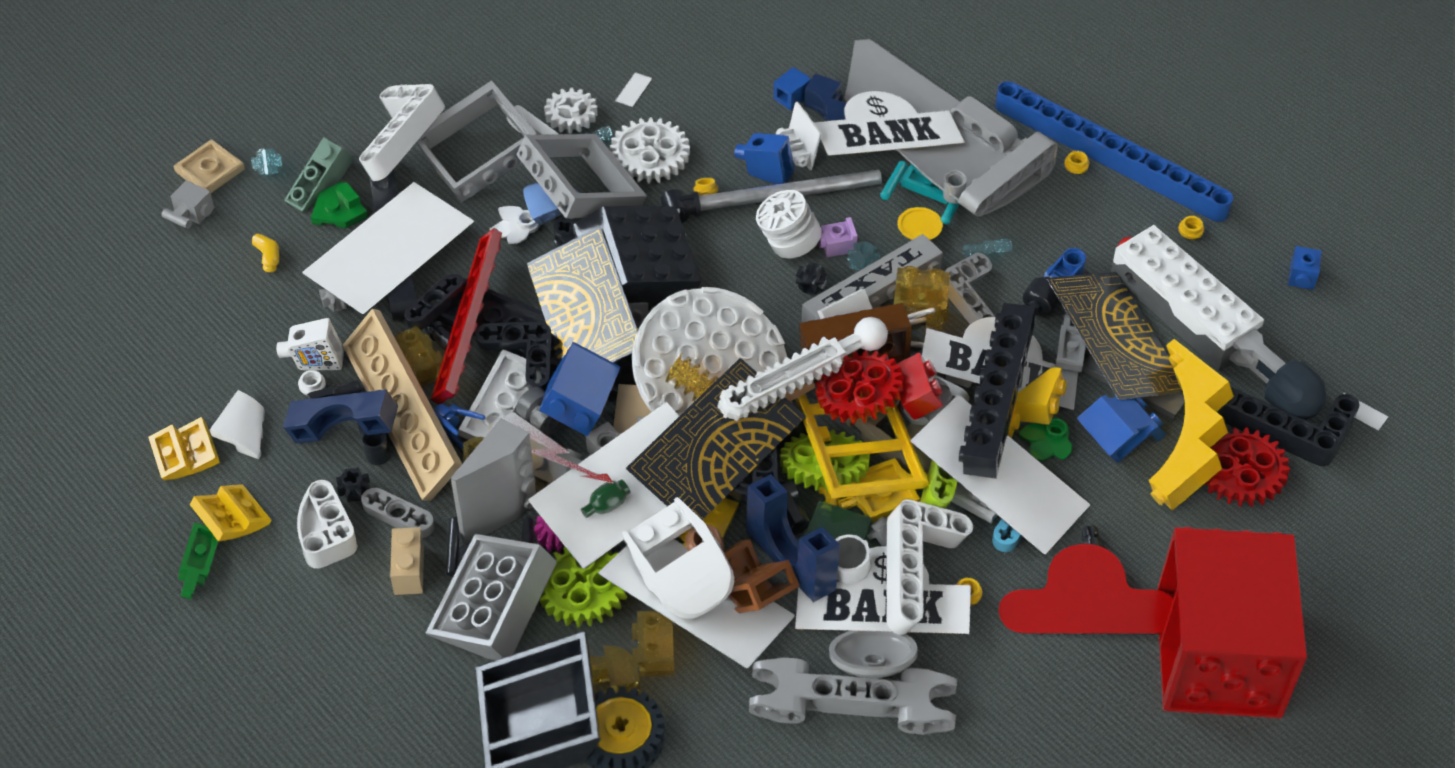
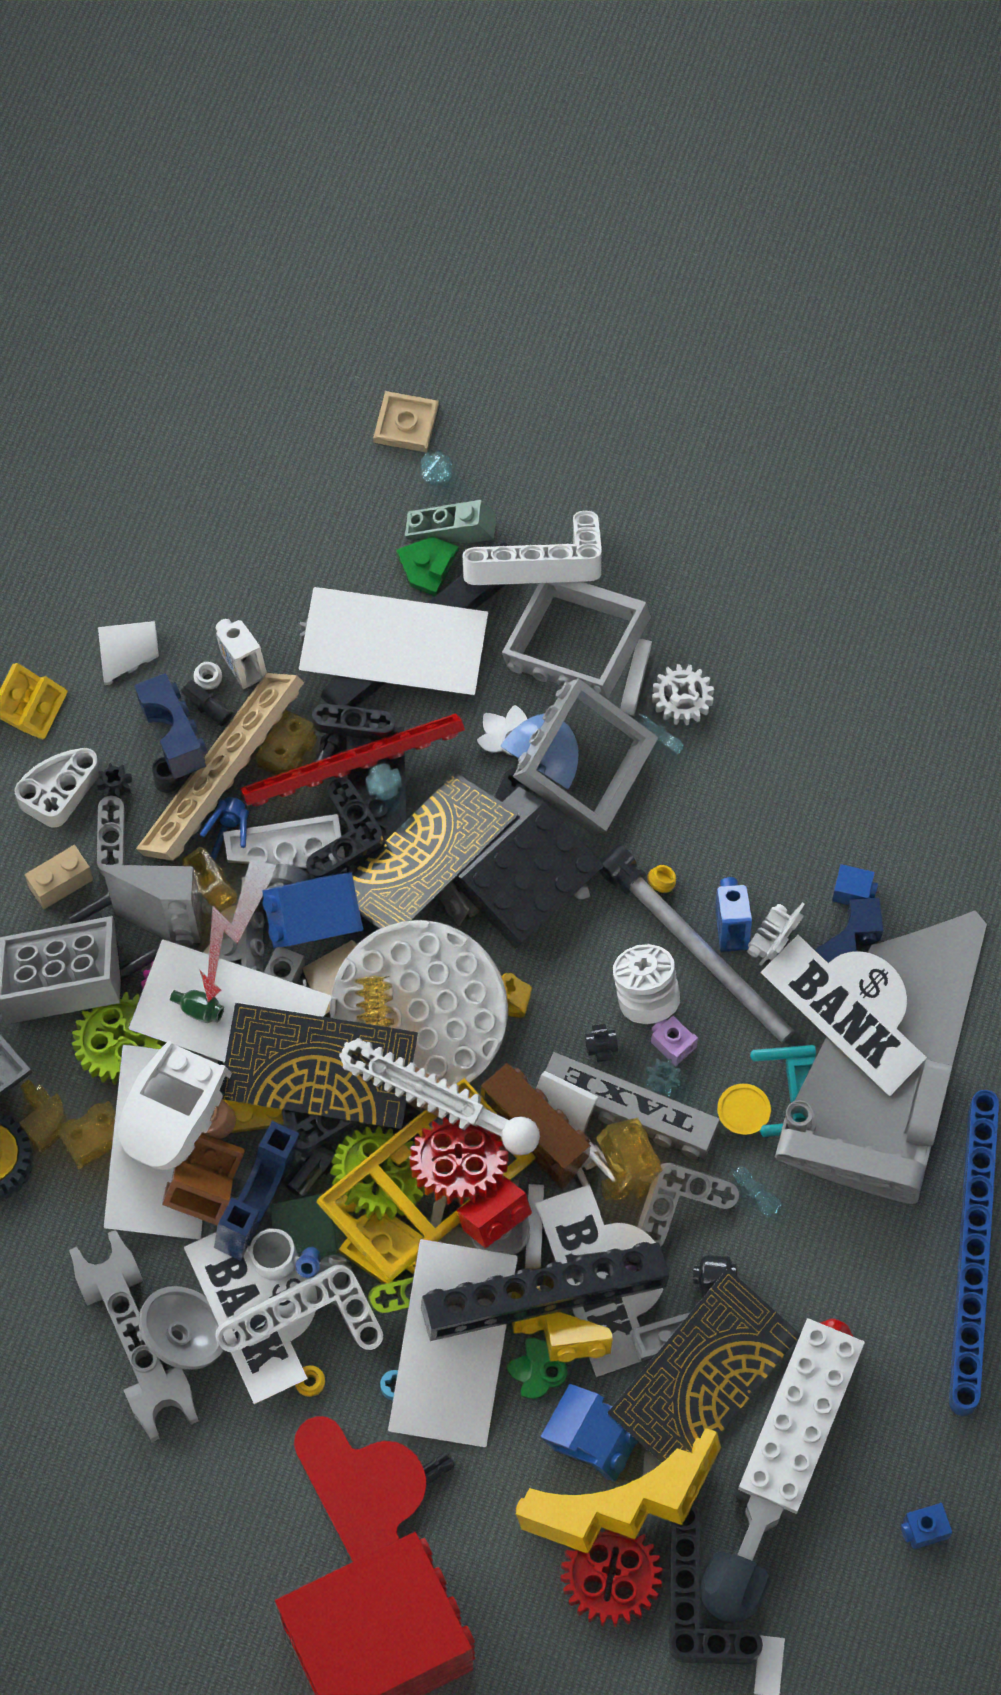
camera: 60 degrees right, 15 degrees up
(184, 450) = (74, 619): yellow slope -> none
(189, 205) = (346, 437): light grey brick -> none
(270, 252) = (334, 542): yellow arm -> none
(503, 302) = (383, 781): none -> clear light blue gear
(633, 89) = (760, 735): white sticker -> none
(651, 149) = (703, 804): white gear -> none
(875, 535) = (308, 1263): none -> blue pin
(1069, 264) = (764, 1282): blue piece -> none
(1076, 162) = (936, 1215): yellow plate -> none
(1191, 227) = (922, 1378): yellow plate -> none

